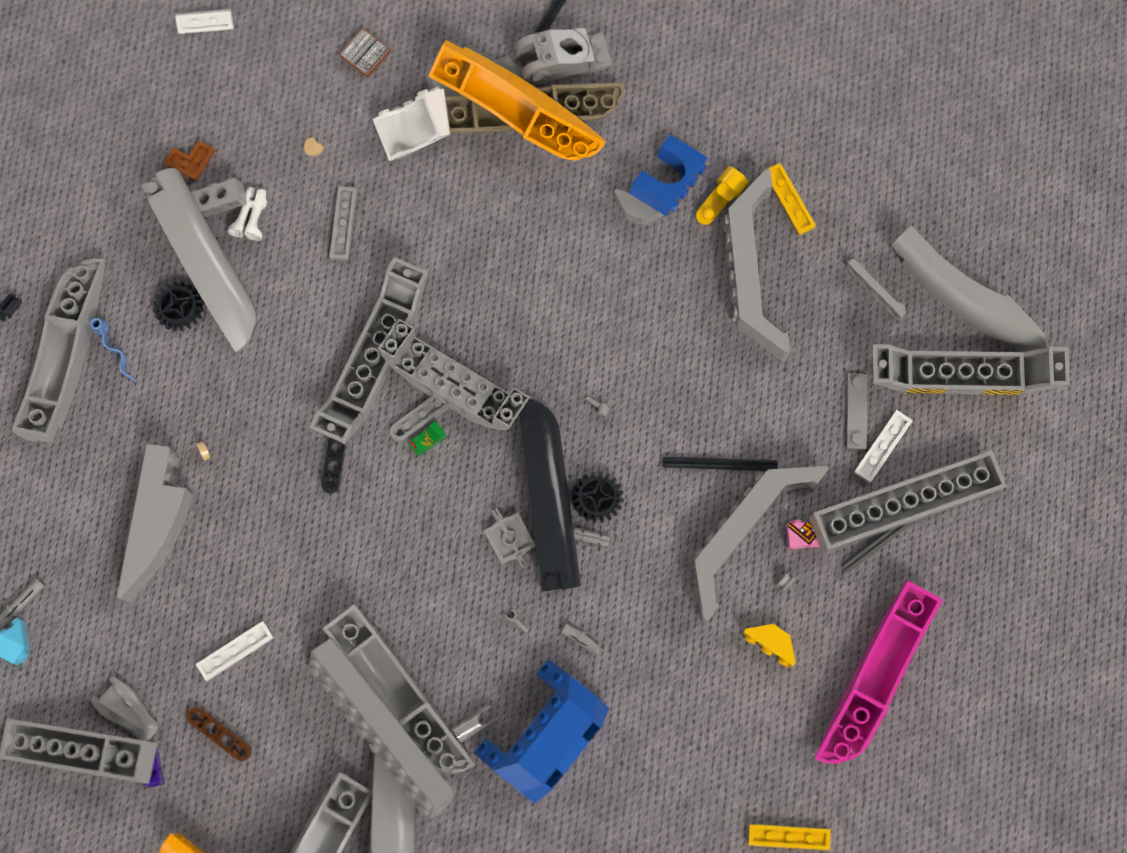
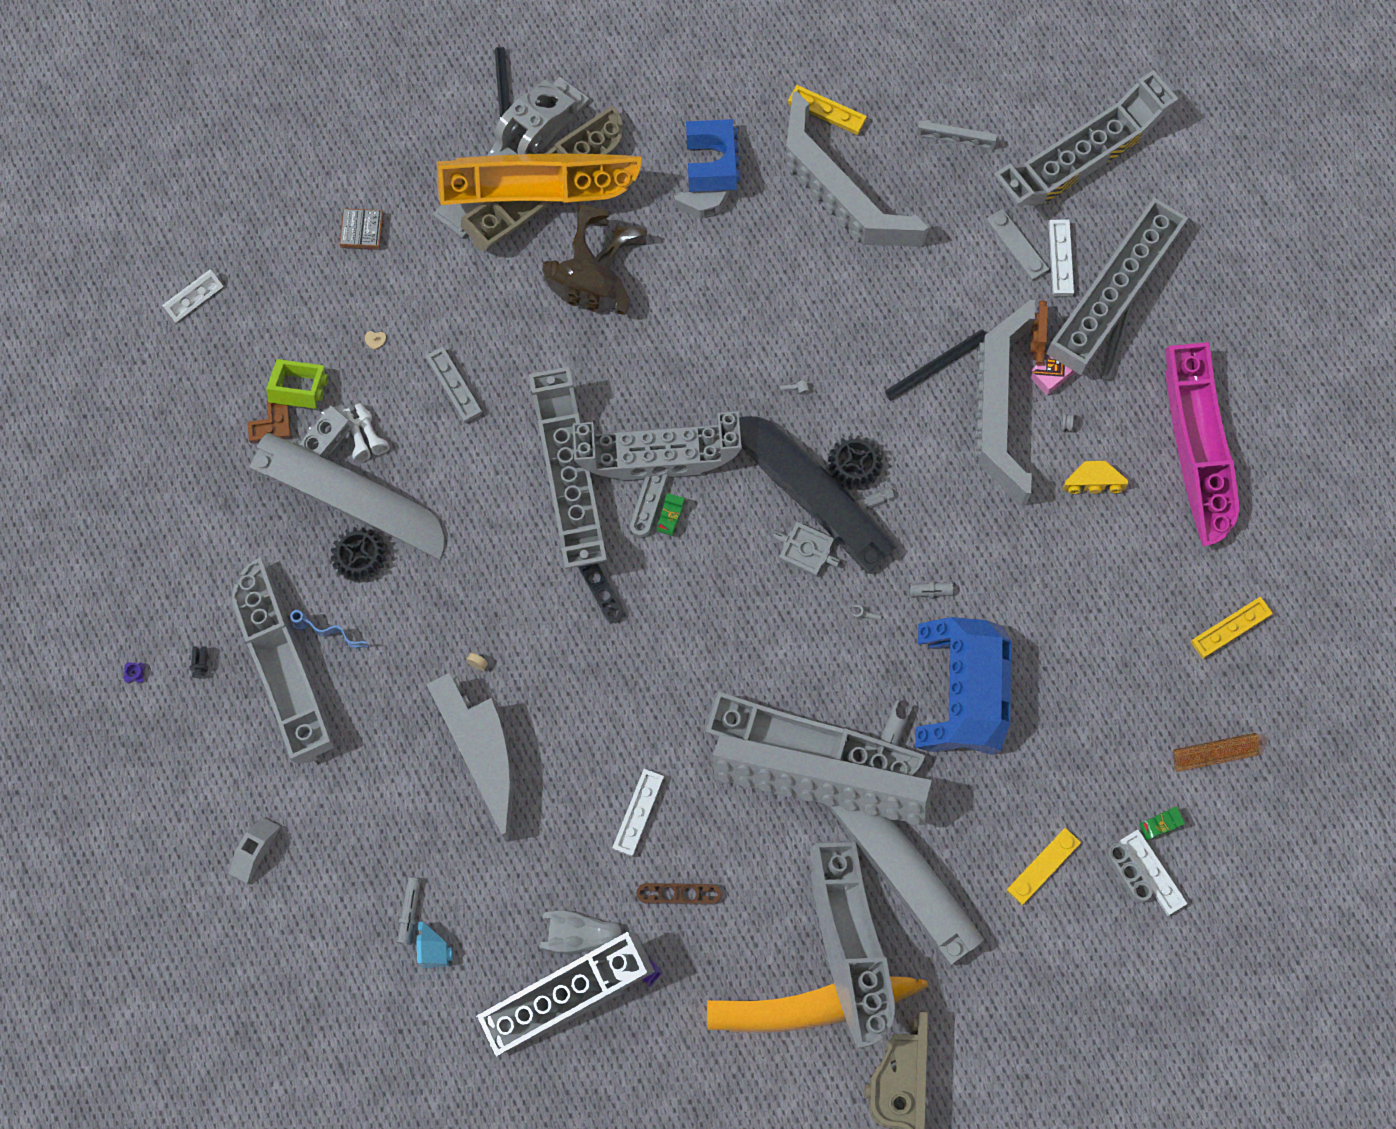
camera: 35 degrees left, 5 degrees down
(218, 128) = (296, 397): none -> lime window
(413, 125) = (456, 255): white windscreen -> none
(502, 214) = (588, 279): none -> dark brown animal
(730, 185) = (769, 131): yellow piece -> none
(819, 491) = (1039, 333): none -> dark orange plate
(979, 306) = (1037, 90): light grey slope -> none

